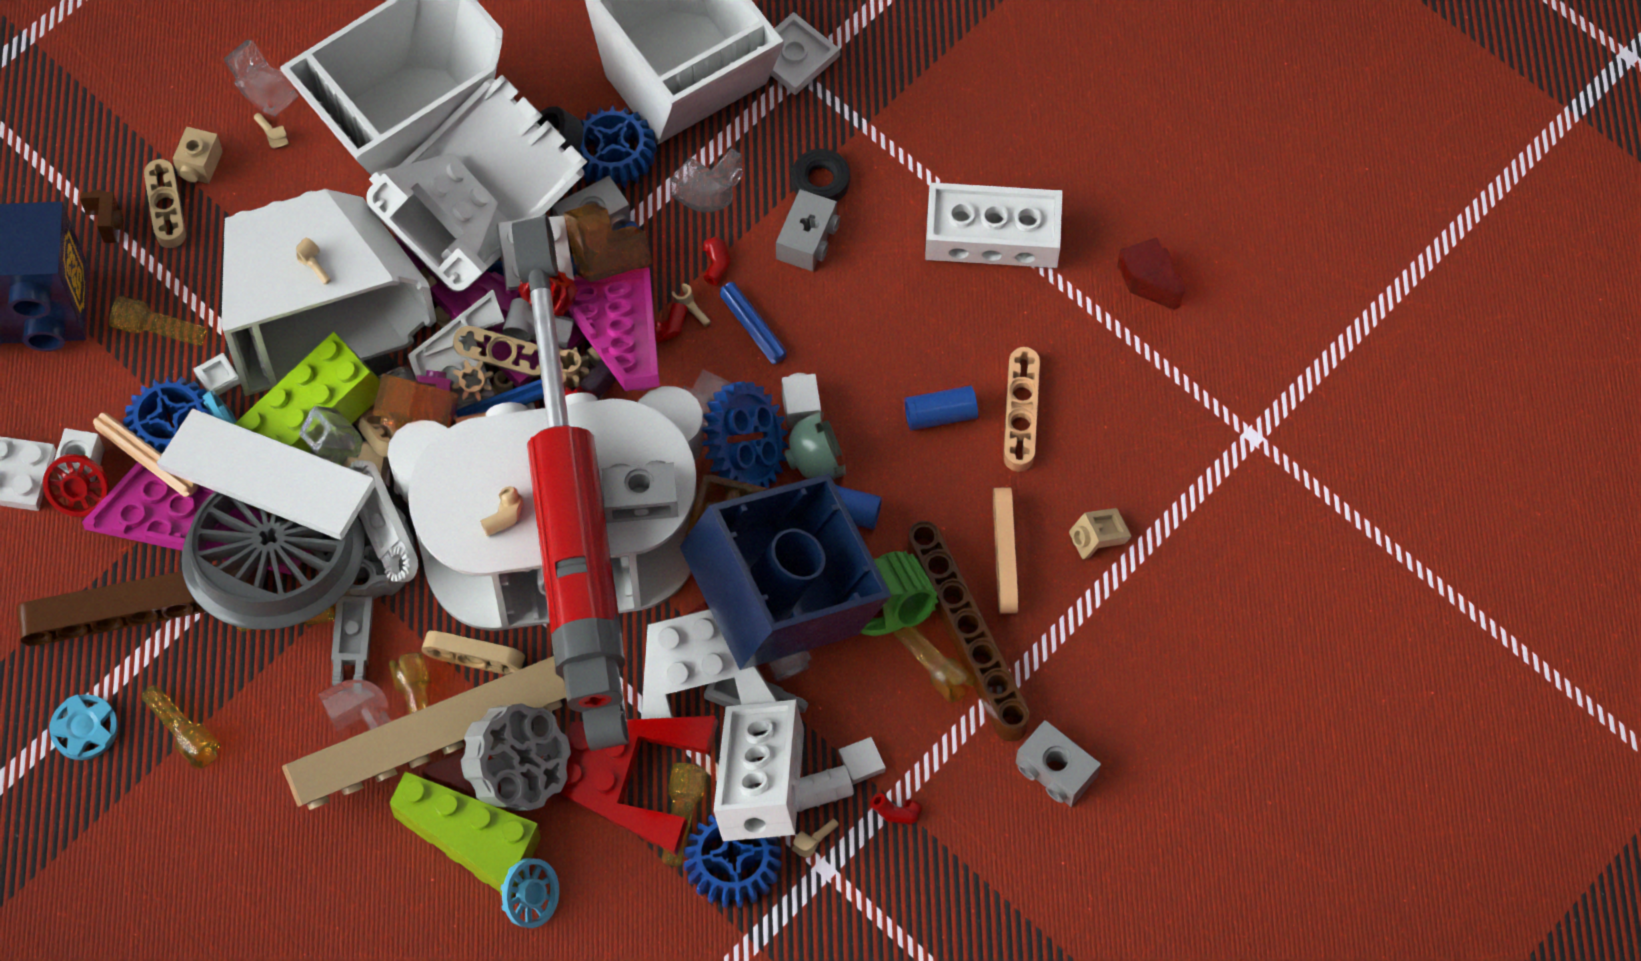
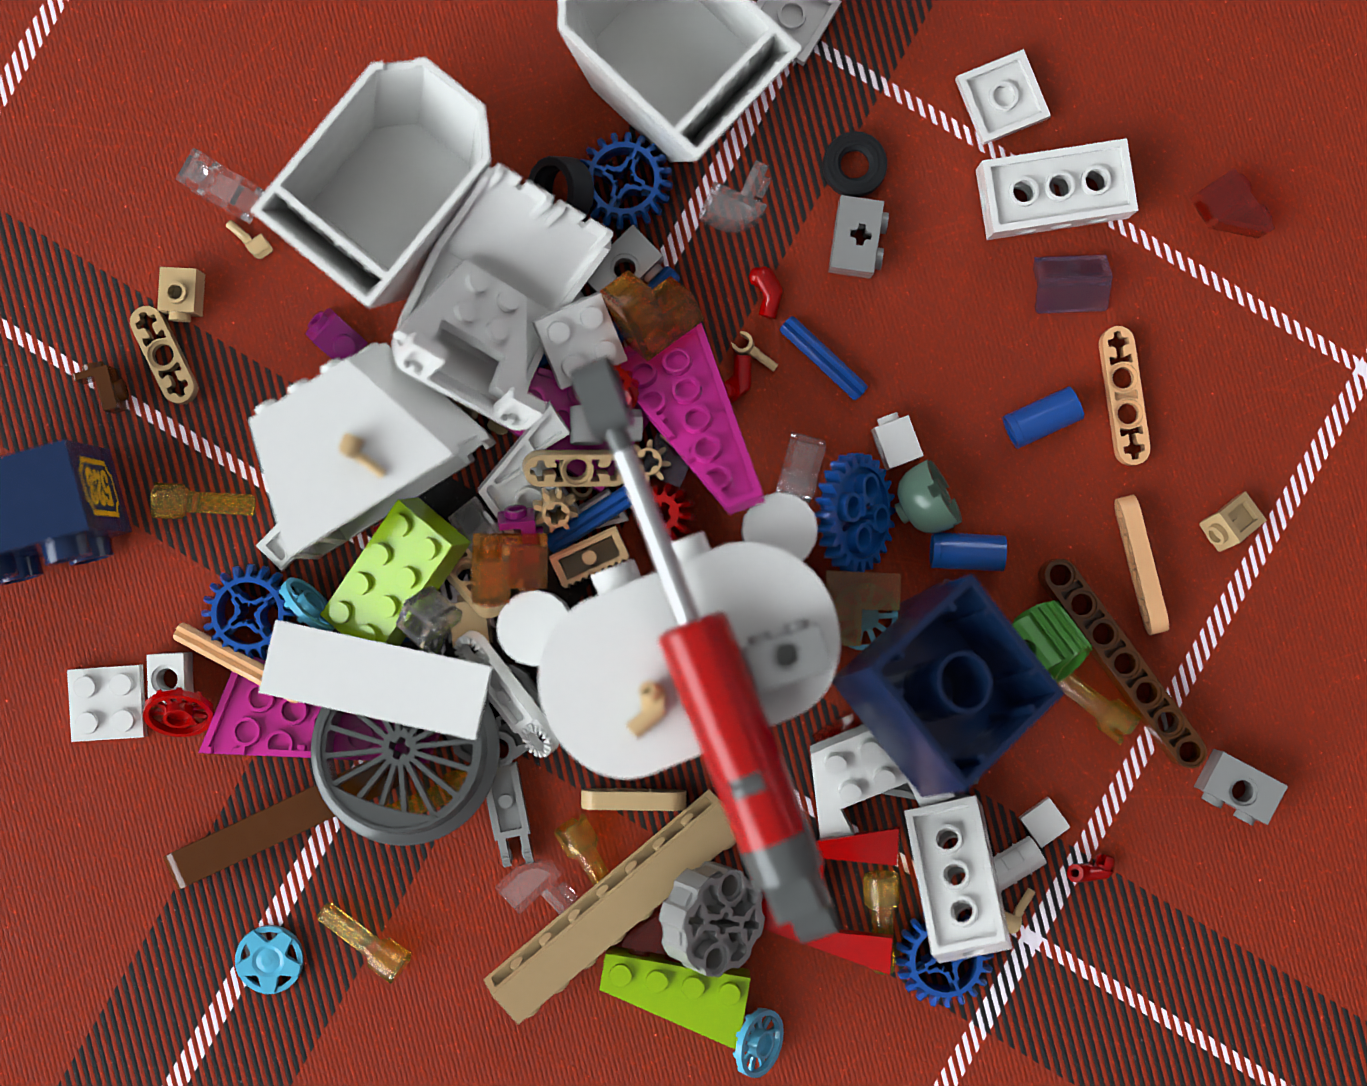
camera: 15 degrees left, 25 degrees up
(964, 150) = (1002, 97): none -> white plate
(992, 309) = (1072, 283): none -> clear purple panel

